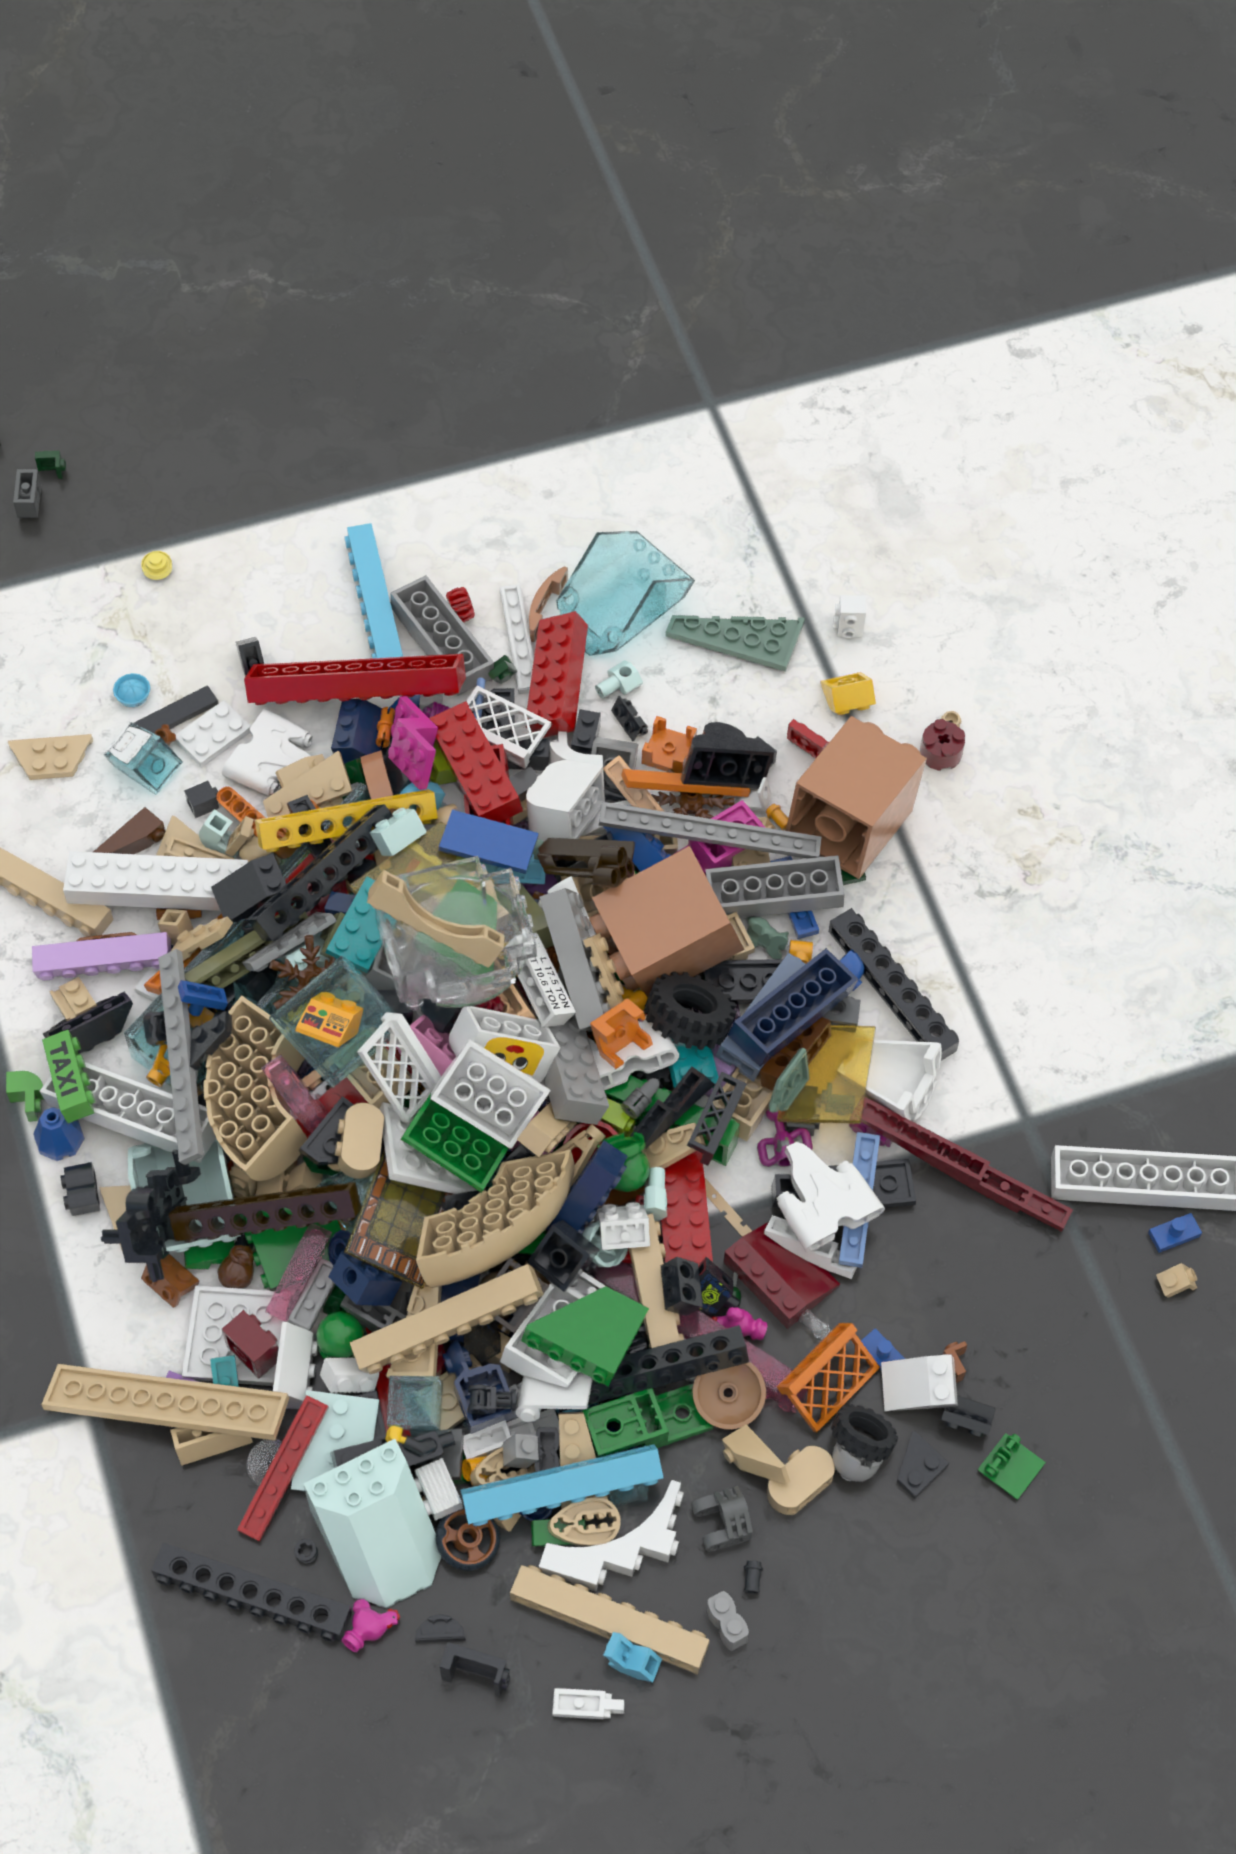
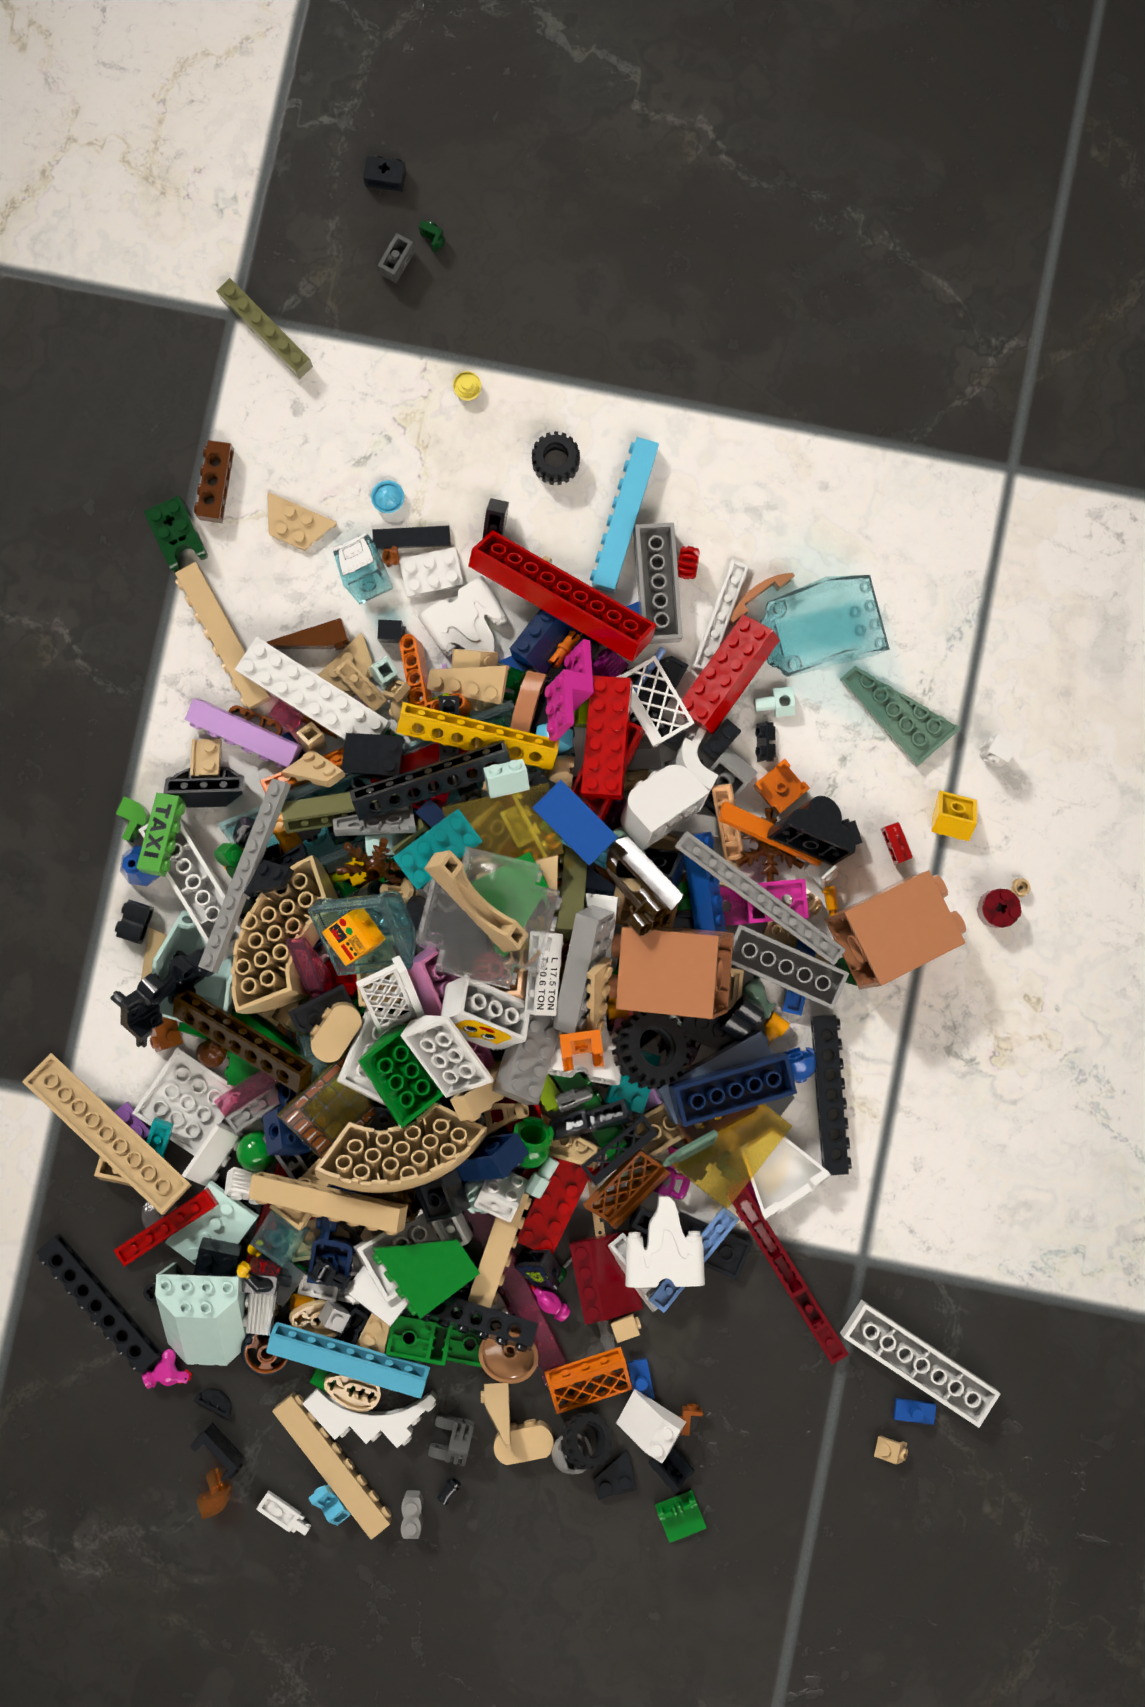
camera: 30 degrees right, 25 degrees up
(137, 919) = (286, 715): none -> clear pink brick
(154, 1059) = (228, 855): none -> green brick
(201, 996) = (285, 834): blue tile -> none
(251, 1343) = (187, 1126): dark red brick -> none
(276, 568) = (551, 443): none -> black tyre
(502, 670) = (690, 641): dark green bracket -> none
(502, 1731) = (215, 1500): none -> clear orange brick
(681, 1286) = (515, 1265): black brick -> none
(760, 1168) = (631, 1195): none -> dark orange fence
(762, 950) = (742, 1017): none -> black brick
(833, 1307) = (625, 1327): none -> tan brick

